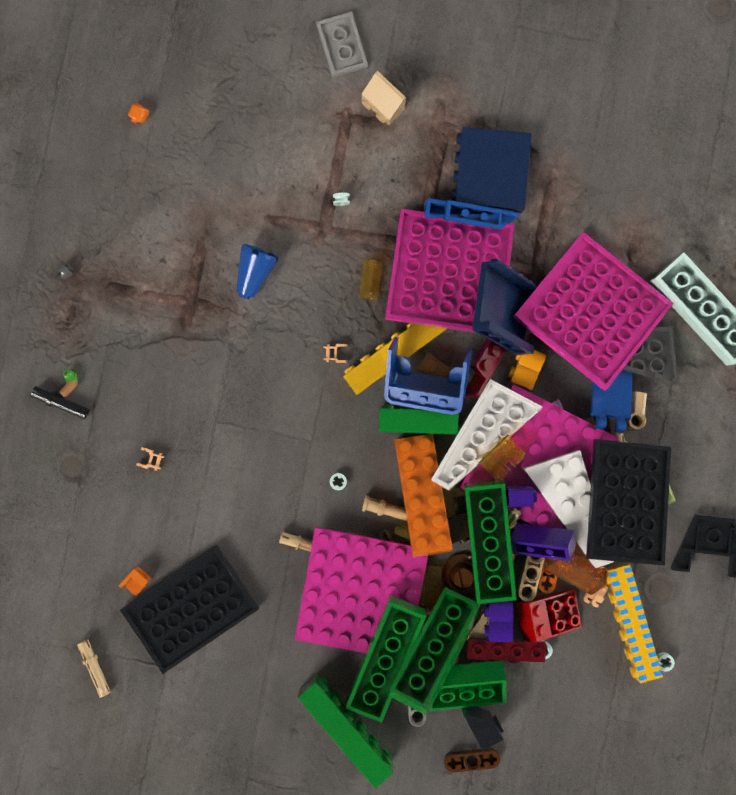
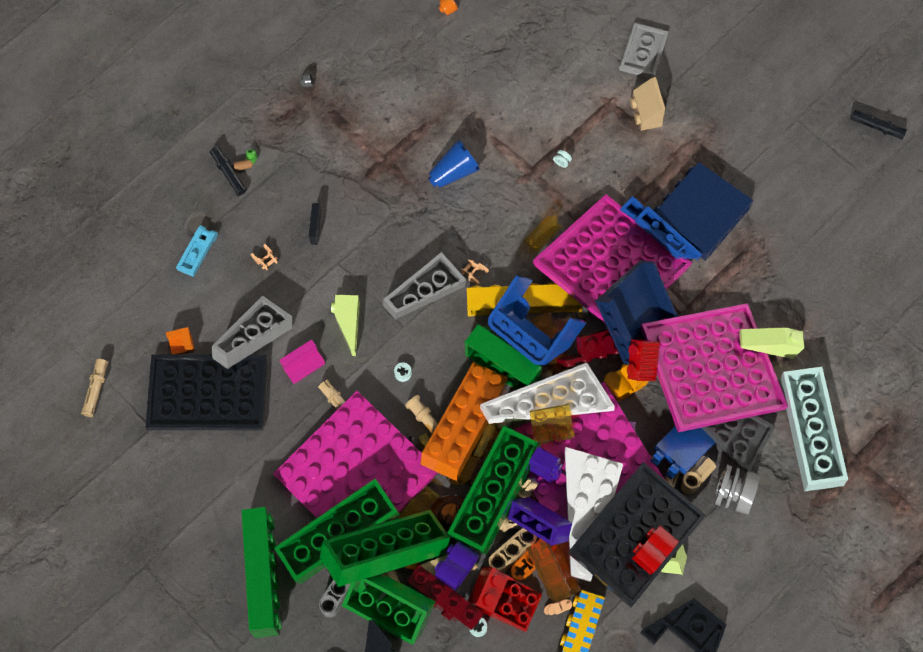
camera: 35 degrees right, 20 degrees down
(88, 493) = (196, 251): none -> medium azure plate
(171, 401) = (314, 223): none -> black tile
(191, 536) = (251, 332): none -> light grey wedge
(250, 529) = (302, 362): none -> dark pink panel
(259, 466) = (347, 316): none -> yellowish green slope
(307, 395) = (424, 287): none -> light grey wedge
(538, 348) = (643, 360): none -> red brick
(627, 254) = (774, 341): none -> yellowish green slope
(655, 509) = (655, 549): none -> red brick
(678, 404) = (737, 489): none -> light grey wheel

